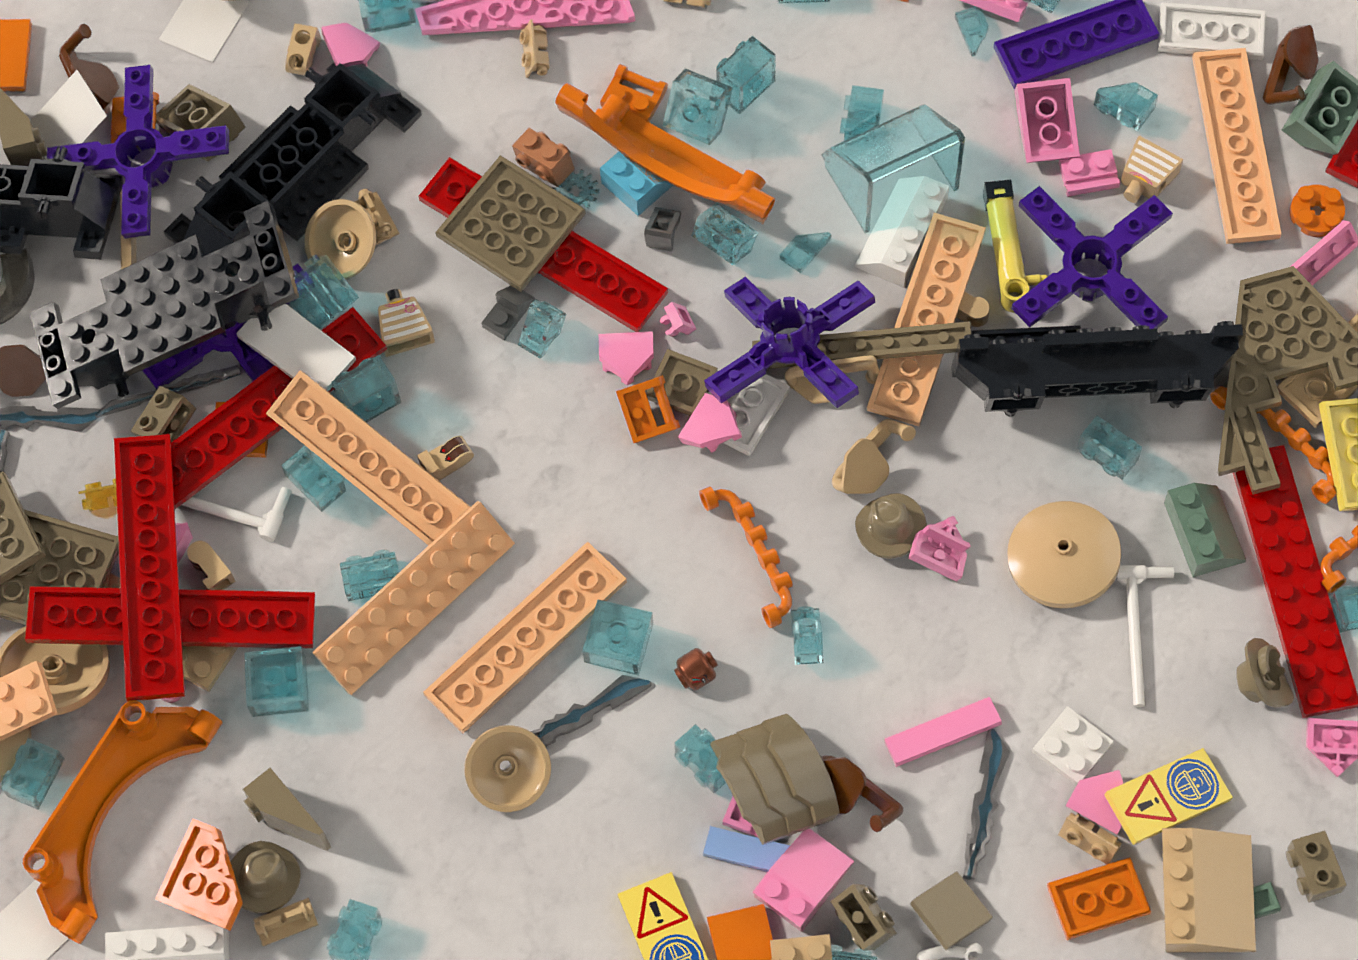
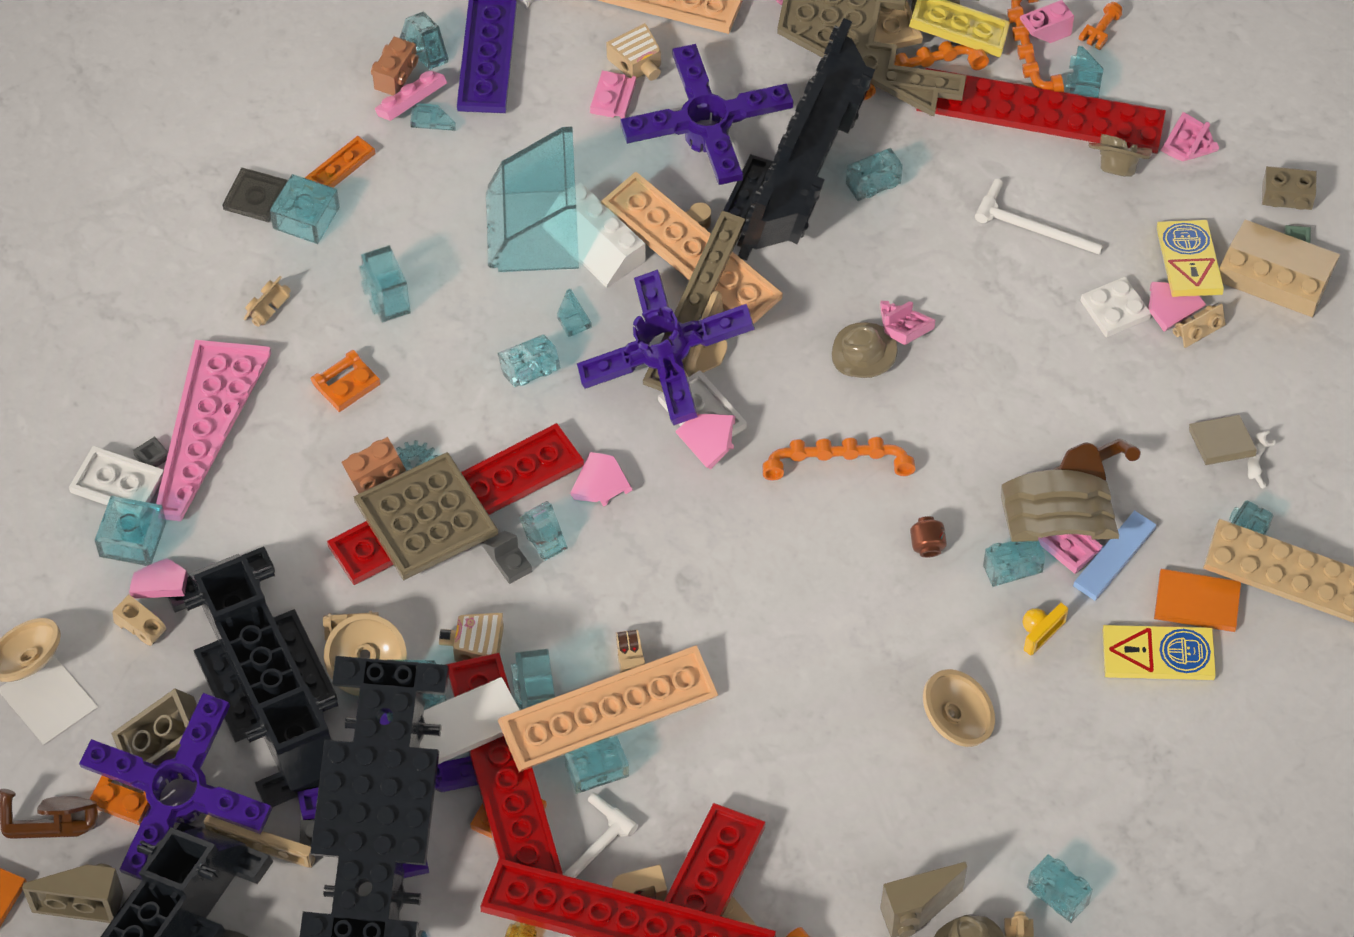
camera: 70 degrees left, 10 degrees down
(69, 114) = (93, 835): white sticker -> none
(160, 415) = (467, 869): dark tan brick -> none
(180, 387) = (443, 808): flat silver sword -> none
(276, 681) = (787, 865): clear light blue brick -> none
(368, 575) = (716, 754): clear light blue brick -> none
(413, 598) = (758, 726): light nougat plate -> none
(524, 637) = (835, 656): light nougat plate -> none
(533, 39) = (253, 440): tan hinge -> none
(579, 715) = (926, 644): flat silver sword -> none
(618, 637) = (871, 582): clear light blue brick -> none
(632, 183) = (435, 410): medium azure slope -> none
(639, 412) = (664, 486): orange plate -> none
(642, 813) = (1042, 626): none -> yellow tile
(661, 228) = (498, 403): dark grey slope -> none
(667, 155) = (442, 365): orange panel -> none
(679, 319) = (590, 427): bright pink tile -> none
(683, 381) = (652, 449): dark tan plate -> none
(697, 106) = (397, 328): clear light blue brick -> none
(802, 879) = (1155, 532): bright pink slope -> none
(807, 635) = (937, 445): clear light blue slope -> none
(863, 110) = (466, 220): clear light blue slope -> none
(863, 463) = (792, 341): tan piece -> none
(864, 917) = (1216, 497): dark tan brick -> none
(943, 731) = (1063, 387): bright pink tile -> none
(984, 805) = (1137, 385): flat silver sword -> none
(999, 205) = (693, 181): light yellow piece -> none
(1047, 120) = (553, 98): bright pink slope -> none
(1069, 575) = (949, 244): tan dish -> none
(1098, 898) = (1251, 341): orange tile -> none
(1127, 102) = (568, 42): clear light blue slope -> none
(1203, 528) = (972, 149): sand green slope -> none

